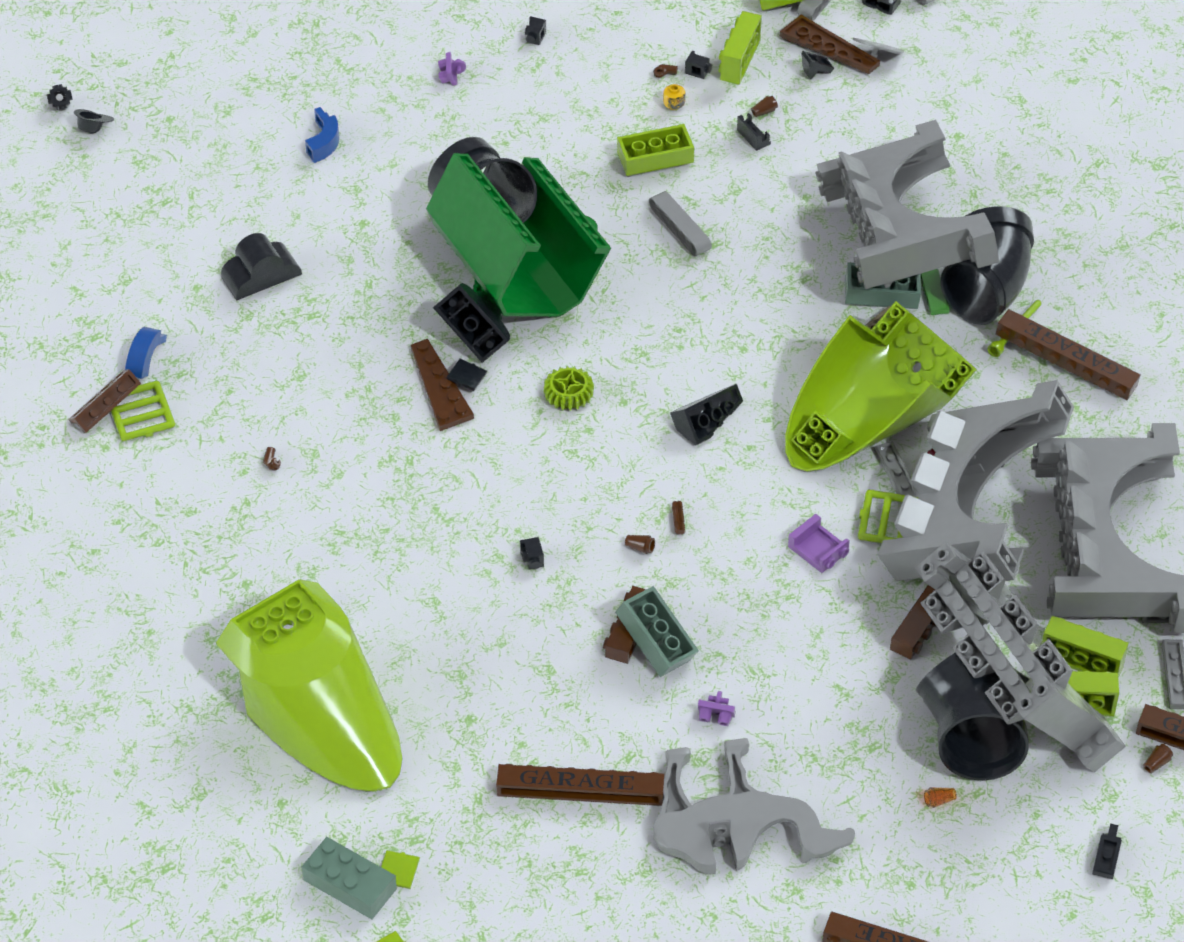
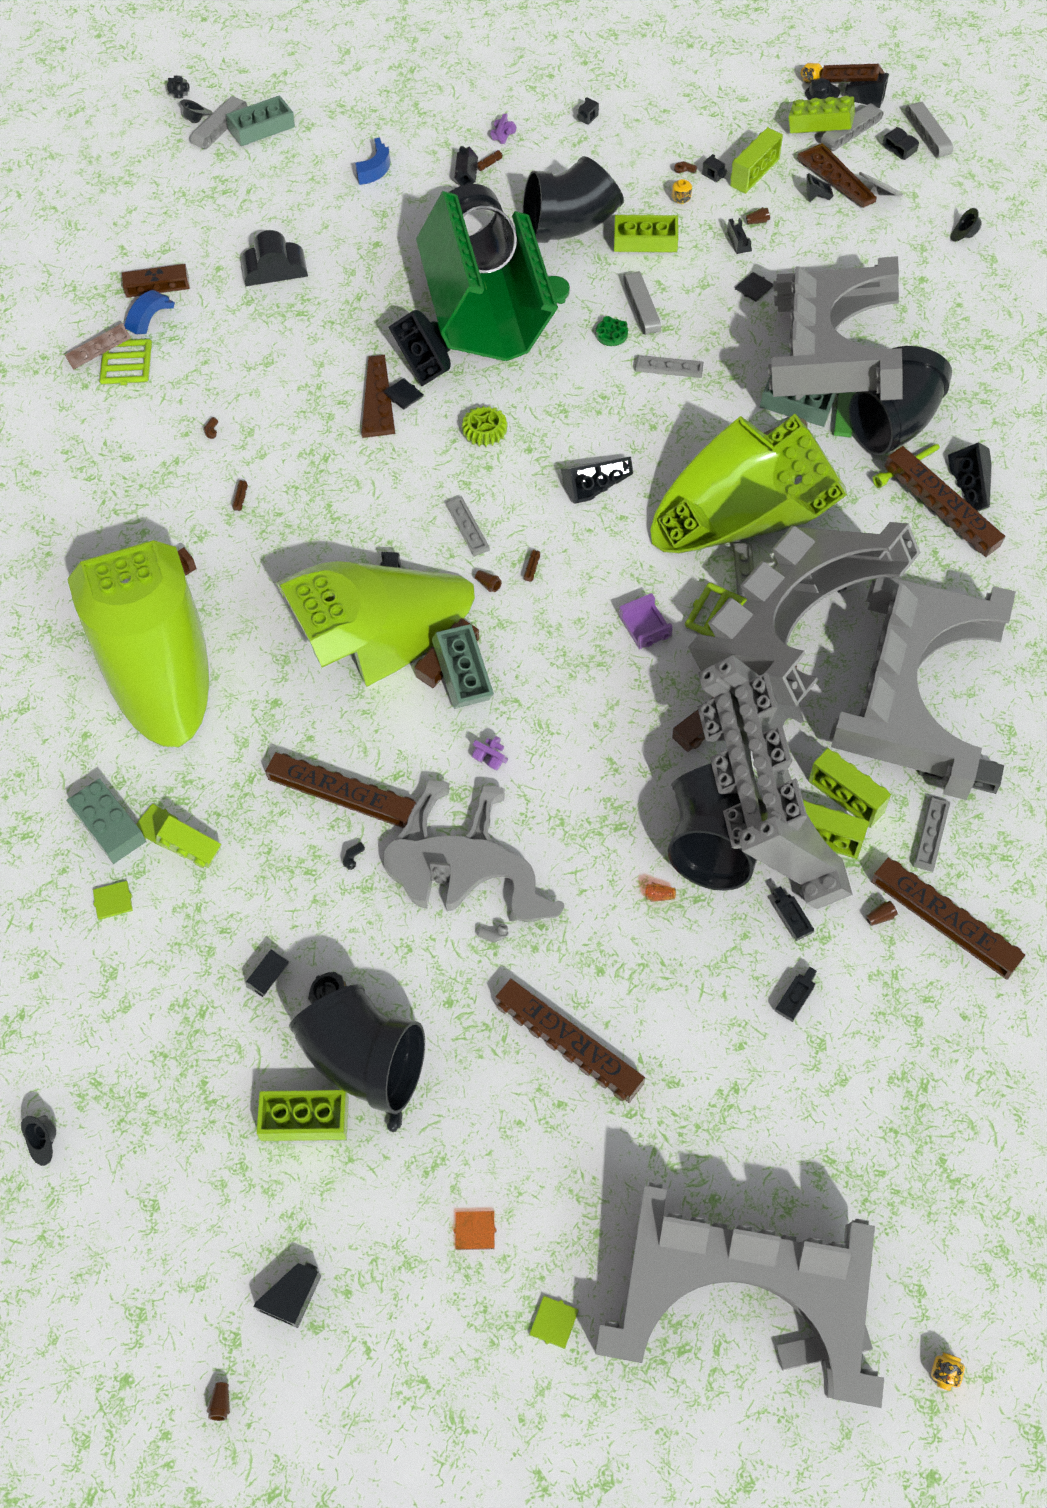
camera: 20 degrees right, 10 degrees up
(124, 127) = (216, 124): none -> light grey beam
(134, 316) = (159, 279): none -> reddish brown brick
(173, 115) = (260, 120): none -> sand green brick
(335, 519) = (239, 495): none -> reddish brown axle
(429, 119) = (466, 166): none -> black brick
(446, 874) = (187, 842): none -> lime wedge
(449, 106) = (489, 160): none -> reddish brown axle
(559, 601) = (374, 612): none -> lime piece
(566, 132) = (570, 201): none -> black cylinder
(594, 494) = (467, 526): none -> light grey tile
(618, 839) = (348, 860): none -> black arm
(659, 260) = (611, 331): none -> green tile
(735, 283) = (669, 366): none -> light grey tile
(789, 181) = (754, 286): none -> black piece
(794, 880) = (495, 935): none -> light grey arm
(983, 71) = (967, 226): none -> black piece
(1074, 781) = (792, 914): none -> black hinge
(1085, 321) = (973, 474): none -> black wedge

